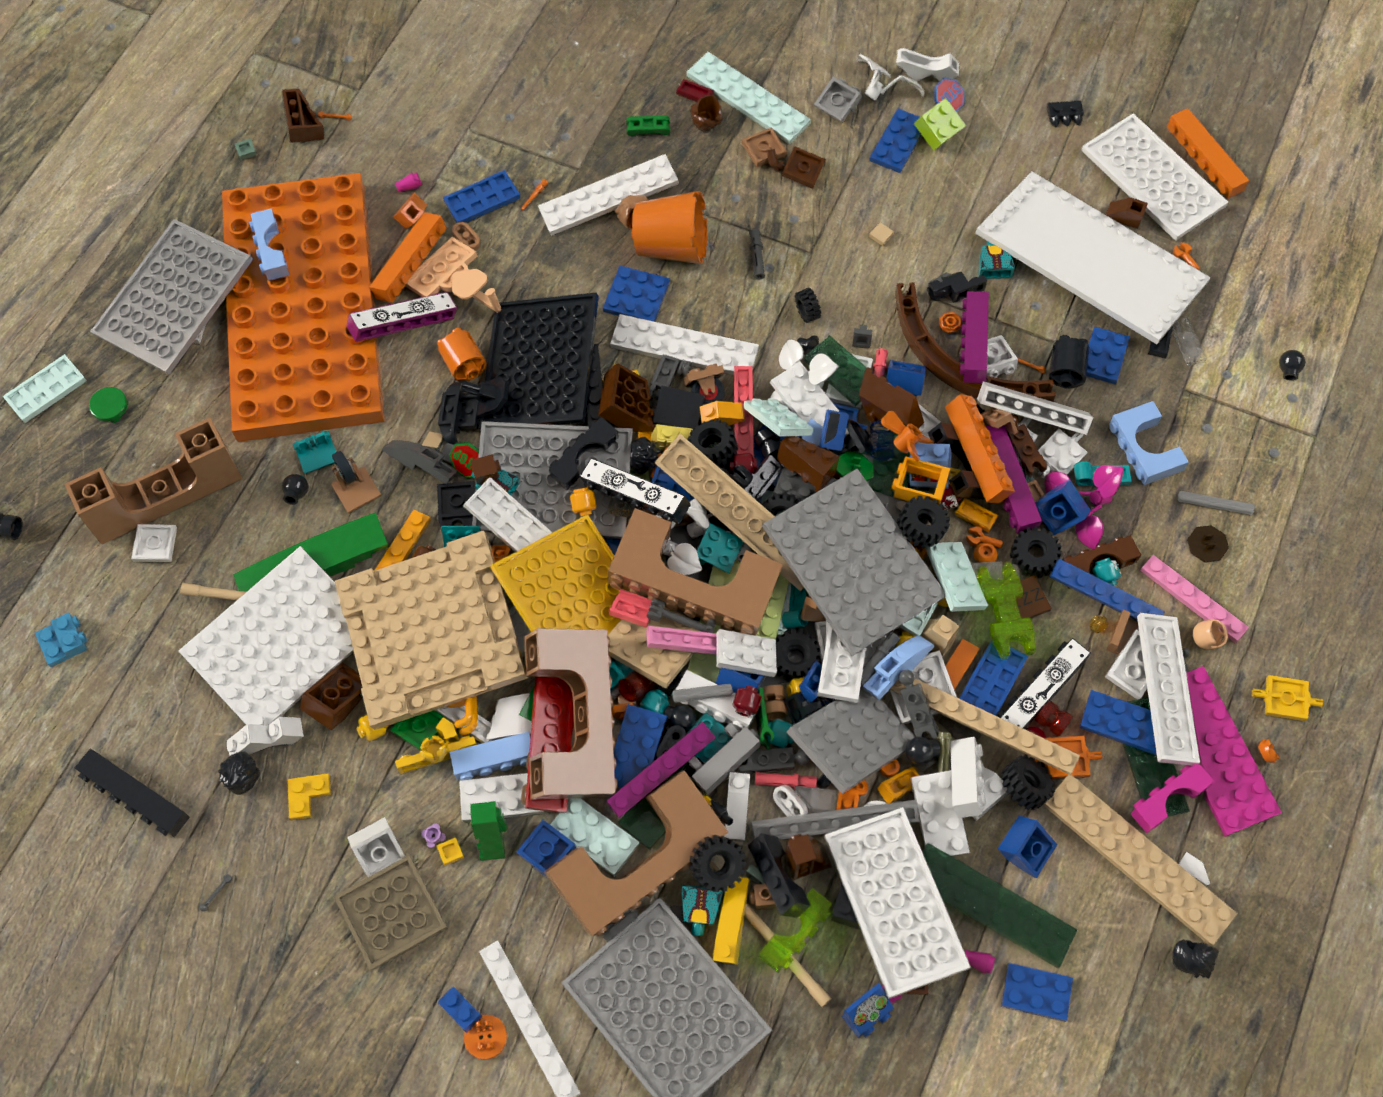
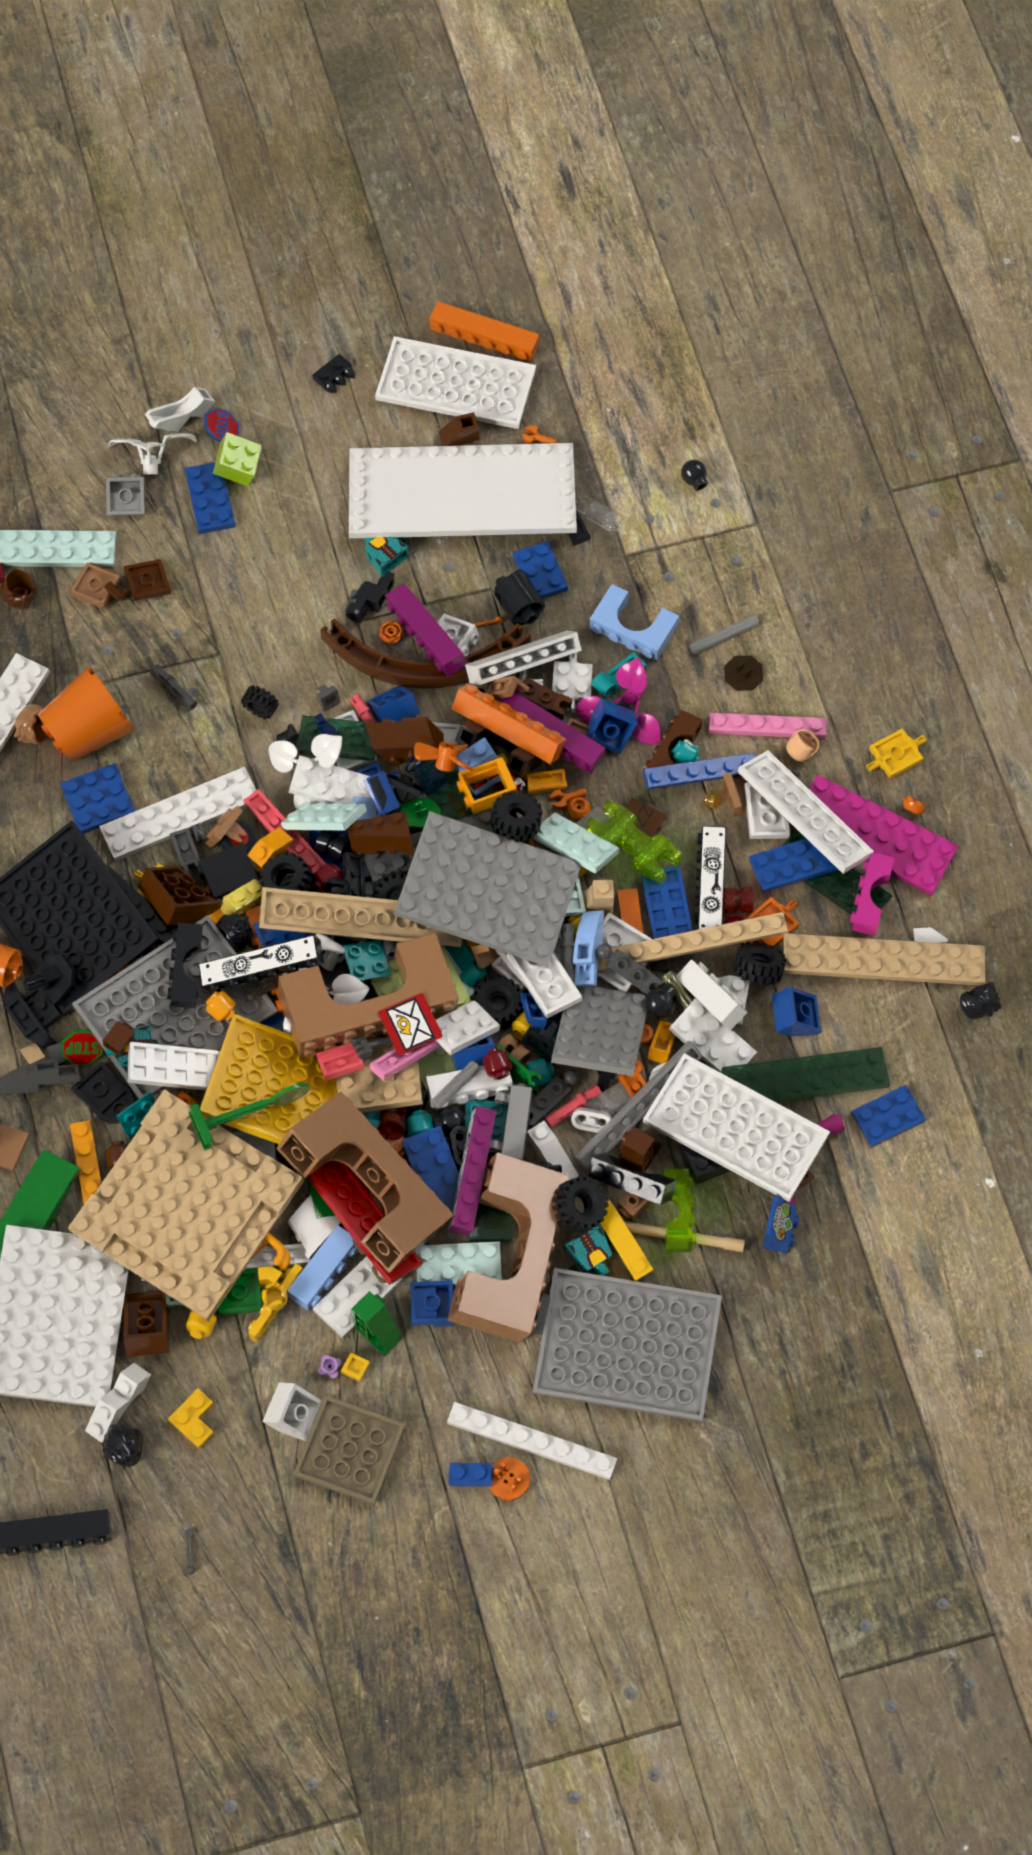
camera: 40 degrees left, 0 degrees up
(484, 578) = (203, 1126): none -> green piece
(704, 619) = (410, 1024): none -> sticker
(755, 875) = (613, 1193): sand green plate -> none
(836, 356) = (324, 726): none -> clear blue plate
(881, 234) = (266, 594): tan tile -> none
(1029, 563) = (618, 790): black tyre -> none

